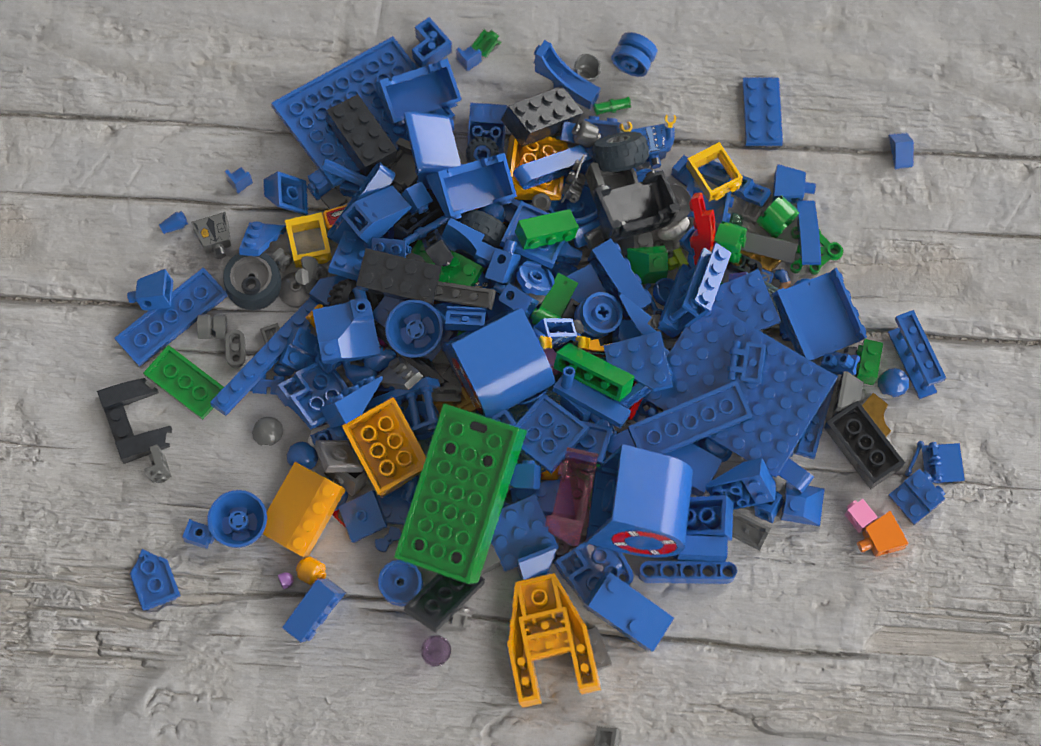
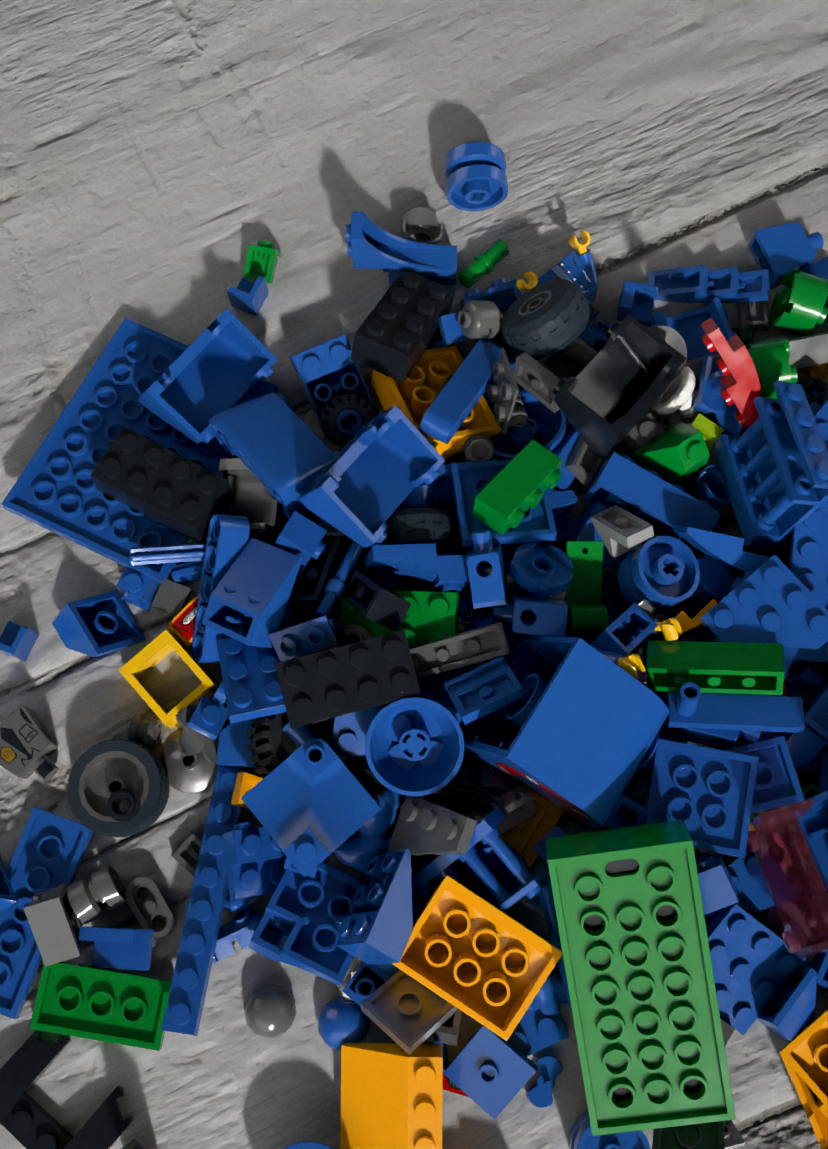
camera: 25 degrees left, 5 degrees up
(183, 329) = (54, 925): none -> dark grey hinge
(209, 357) = (119, 947): none -> blue panel
(258, 237) = (93, 718): blue wing -> none
(319, 267) = (210, 714): none -> blue plate
(433, 44) = (190, 301): blue brick -> none
(591, 282) = (621, 530): none -> light grey slope
(706, 156) = (695, 262): yellow window -> none
(762, 111) = (683, 172): blue plate -> none

